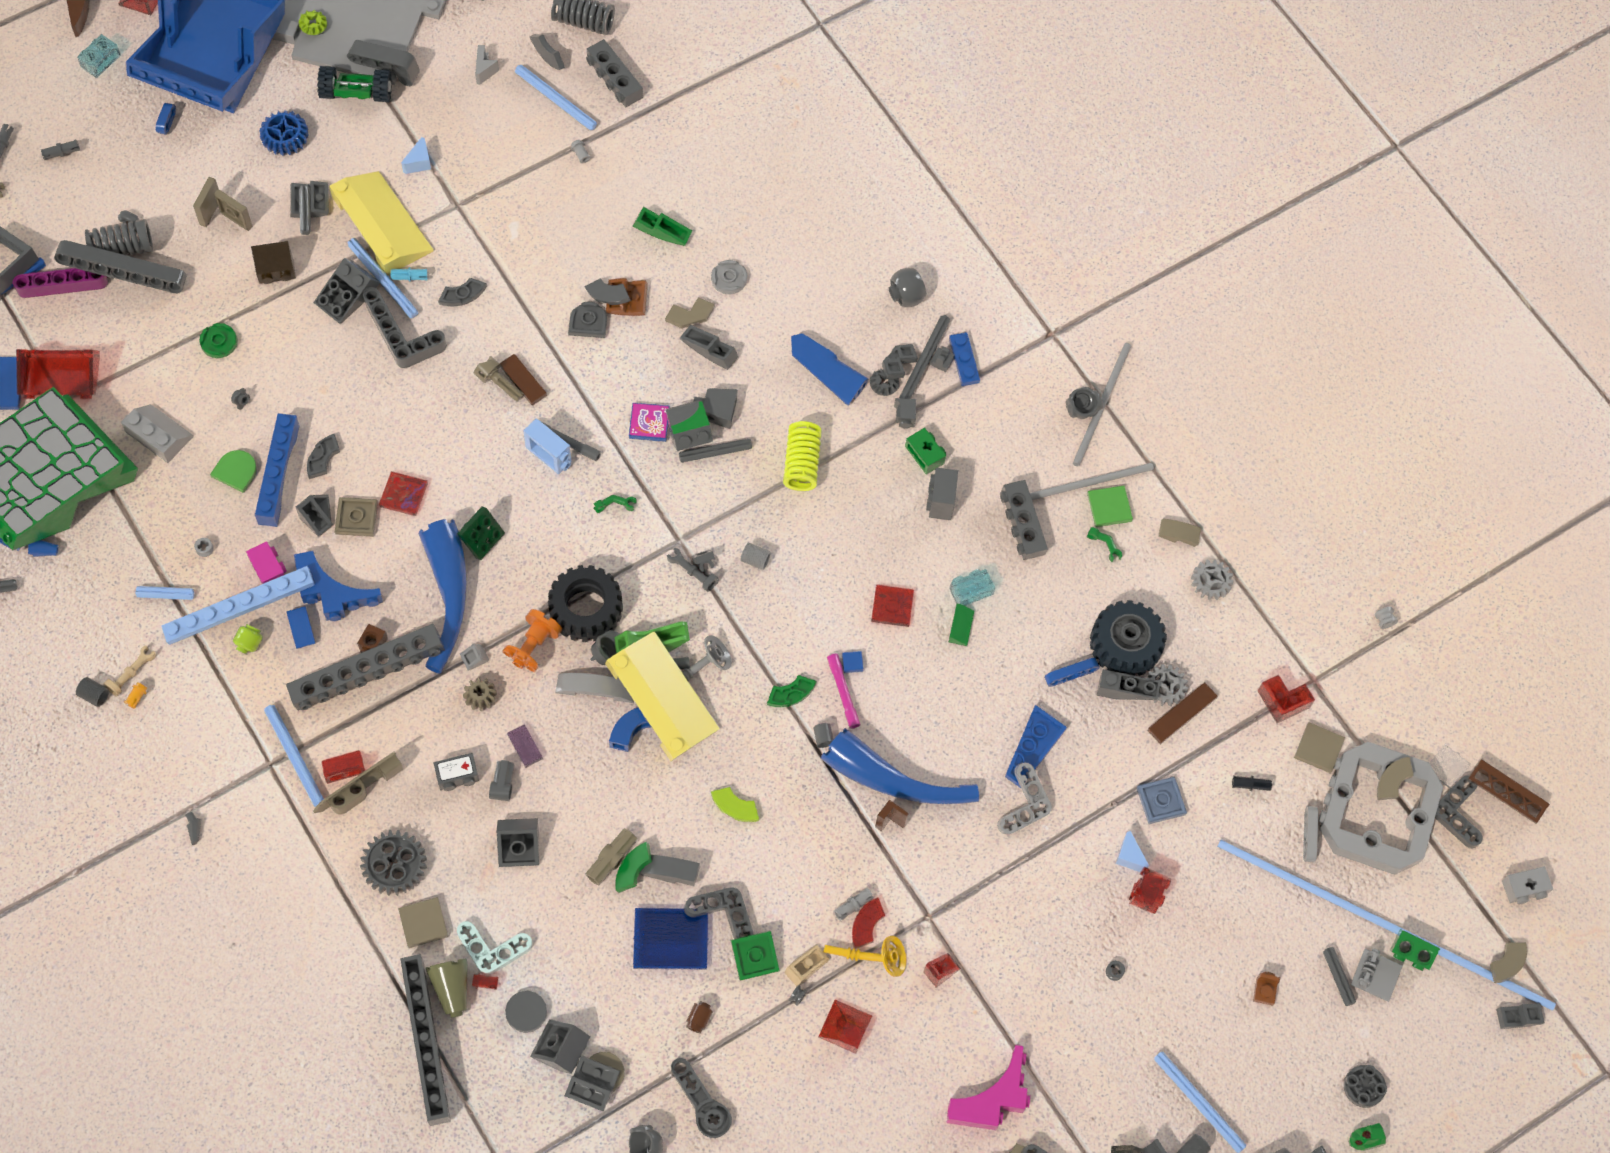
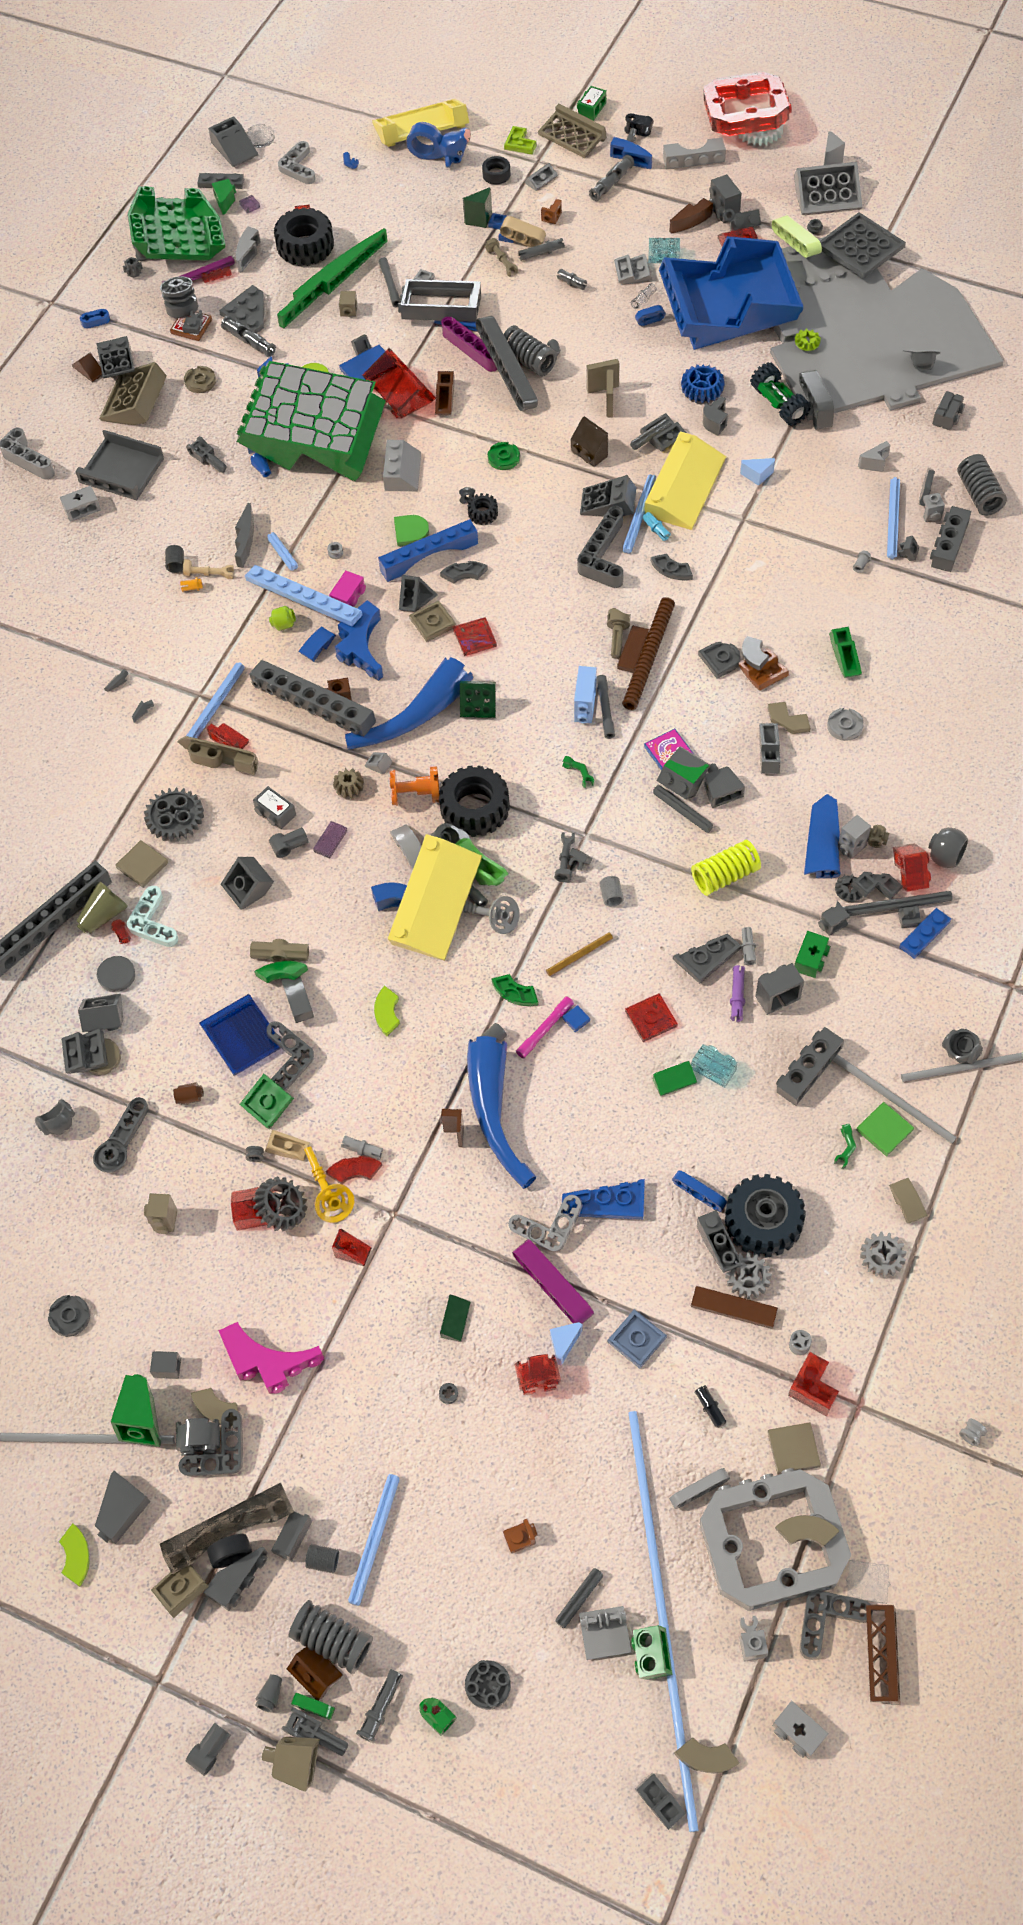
camera: 65 degrees right, 5 degrees down
(94, 95) = (632, 270): none -> light grey slope
(101, 340) = (444, 392): none -> reddish brown slope
(115, 610) = (244, 531): none -> dark grey slope
(137, 108) = (643, 296): none -> clear pin
(247, 824) = (142, 709): none -> dark grey bar
(267, 386) = (482, 516): none -> black tyre
(330, 152) = (714, 416): none -> dark grey brick
(540, 370) = (648, 653): none -> reddish brown piece
(575, 60) = (934, 507): none -> light grey bracket
(599, 109) = (909, 548): none -> dark grey tile
(793, 619) = (578, 954): none -> pearl gold bar
(806, 1105) = (161, 1213): none -> dark tan brick
(847, 345) = (854, 836): none -> light grey brick
(855, 329) = (878, 836): none -> dark tan gear
(865, 1000) = (269, 1203): none -> dark grey gear
(871, 527) = (706, 959): none -> dark grey wing
(882, 490) = (748, 946): none -> light grey axle
(903, 322) = (913, 866): none -> clear red brick
(925, 531) = (737, 1000): none -> medium lavender pin
(1055, 925) = (455, 1318): none -> dark green slope
(1076, 831) = (552, 1282): none -> magenta beam
(1245, 682) = (802, 1338): none -> light grey wheel
(1448, 875) = (752, 1642): none -> light grey brick

